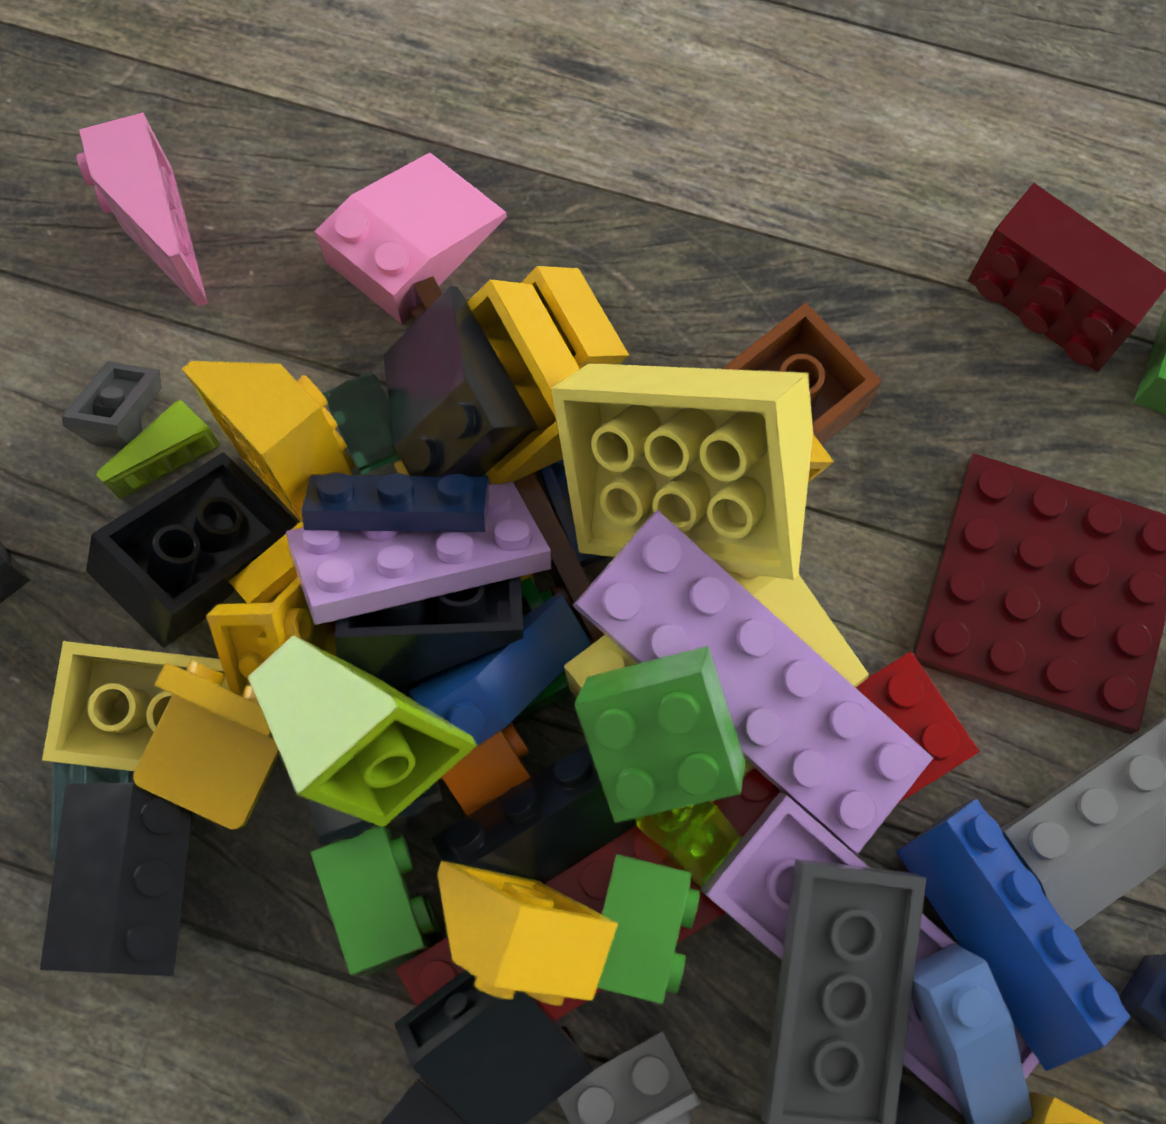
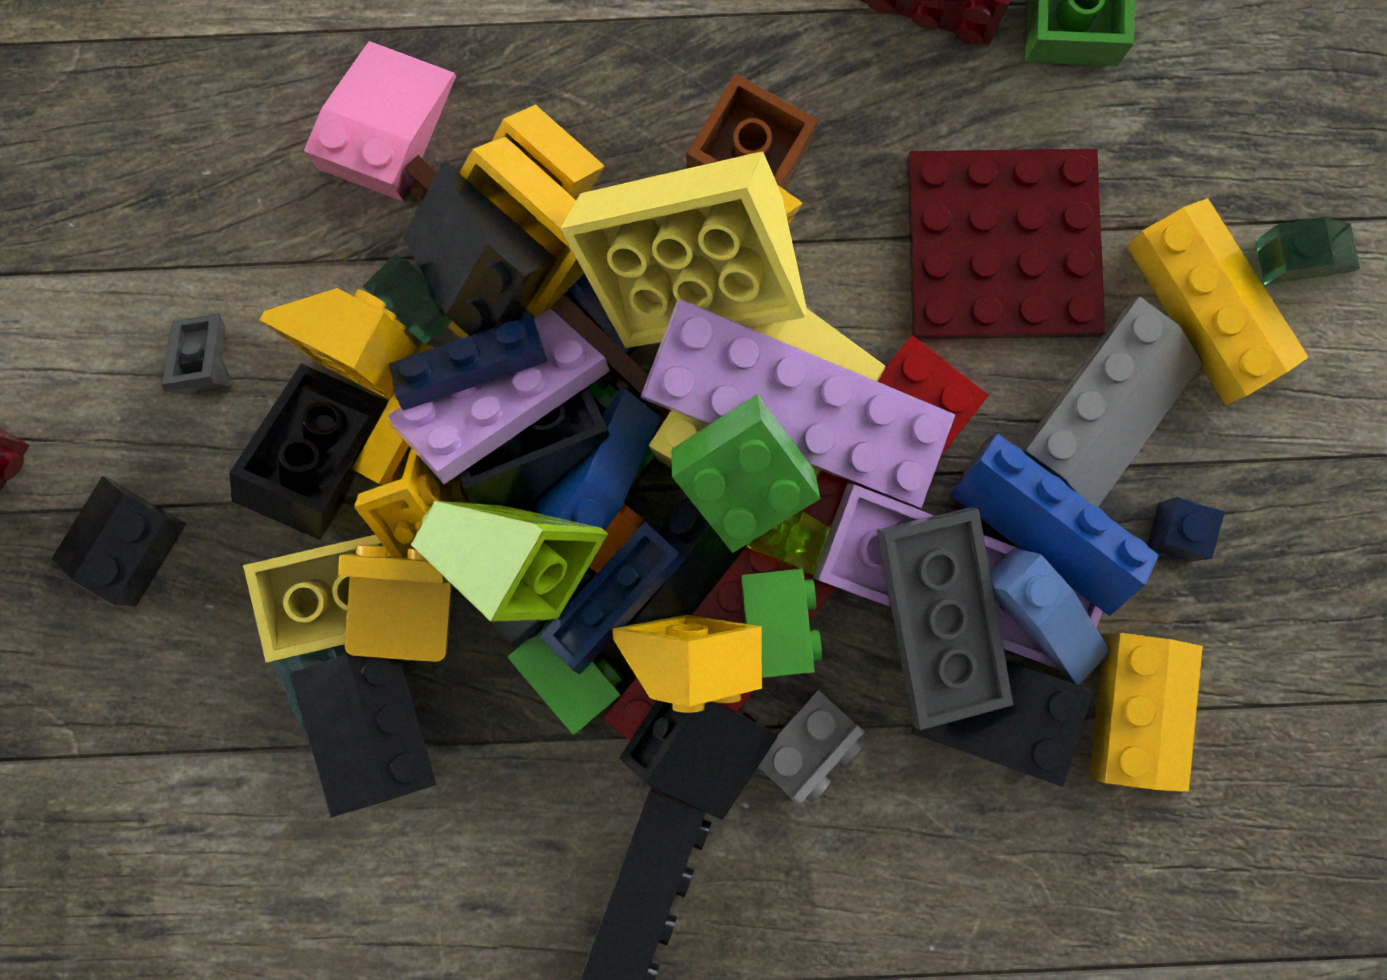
camera: 20 degrees left, 10 degrees up
(142, 192) = (136, 162): bright pink slope -> none
(159, 449) = (249, 379): lime slope -> none
(455, 826) = (612, 598): none -> dark blue plate

